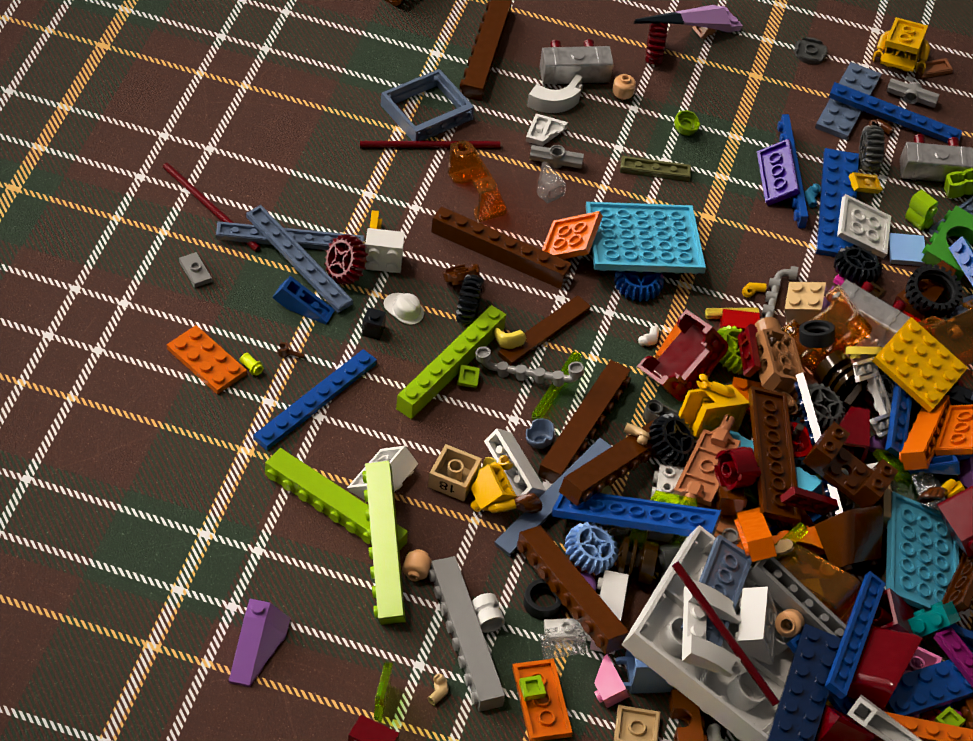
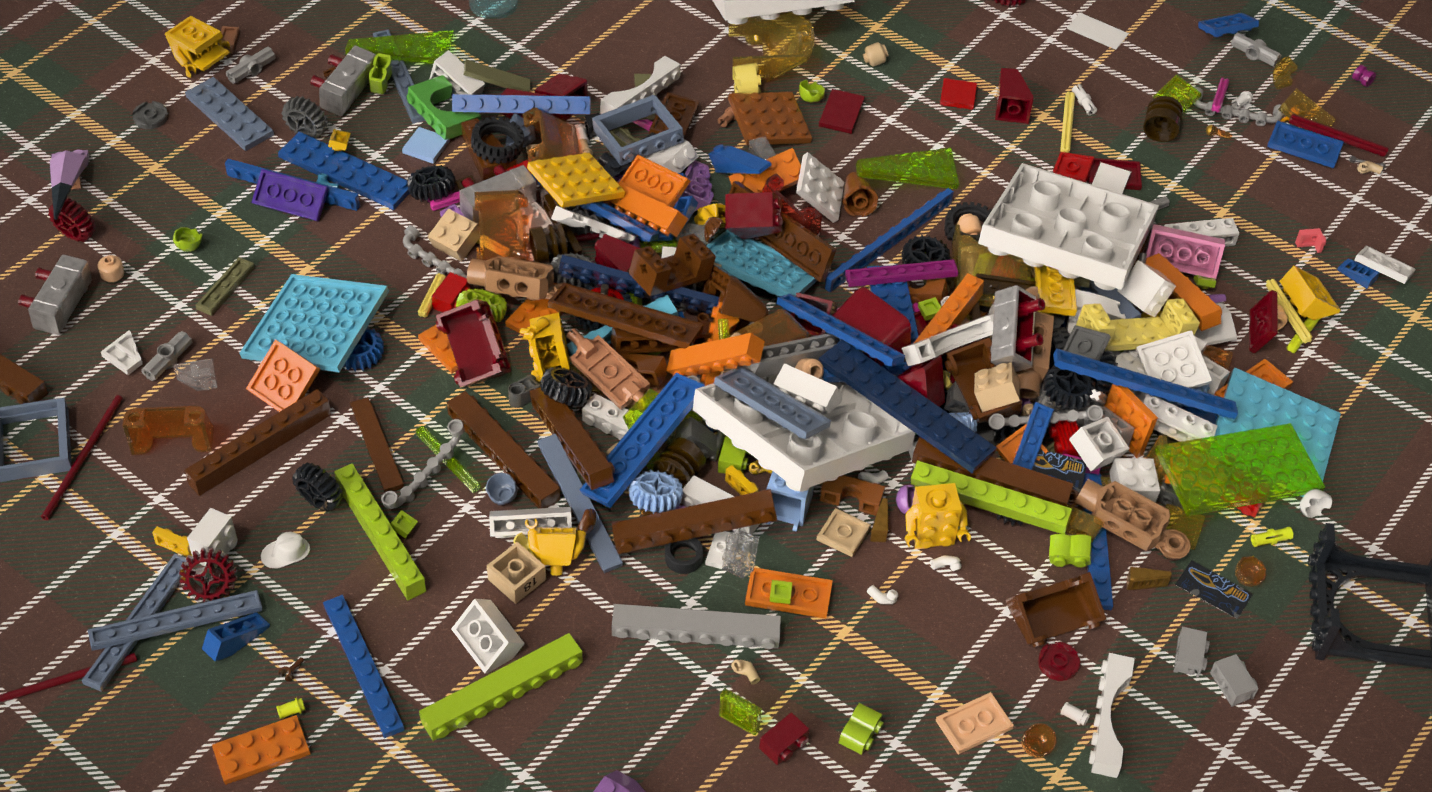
camera: 65 degrees left, 0 degrees up
(195, 269) = (132, 724): light grey plate -> none
(373, 323) = (298, 581): black brick -> none
(385, 544) = (578, 653): brick -> none
(417, 565) = (606, 640): light nougat head -> none
(457, 273) = (276, 484): reddish brown plate -> none
(488, 612) = (683, 600): white wheel -> none
(509, 340) = (380, 476): light yellow hair -> none
(555, 100) = (92, 331): white arch -> none
(609, 684) = (794, 533): bright pink slope -> none
(642, 435) = (549, 407): tan arm -> none
(651, 338) = (429, 364): white arm -> none
(695, 647) = (787, 412): white wedge -> none
(725, 633) = (781, 406): dark red piece -> none
(737, 468) = (633, 345): dark red brick -> none
(749, 350) = (497, 292): dark red plate -> none
(751, 288) = (410, 268): yellow arm -> none
(808, 501) = (689, 309): dark red plate -> none
(817, 334) = (509, 243): black tyre -> none
(856, 351) = (542, 208): light yellow plate -> none
(864, 226) = (389, 160): white plate -> none
(886, 128) = (273, 104): reddish brown arm -> none
(893, 113) = (268, 87): blue plate -> none
(921, 210) = (396, 113): lime brick -> none
(933, 620) = (831, 279): teal brick -> none

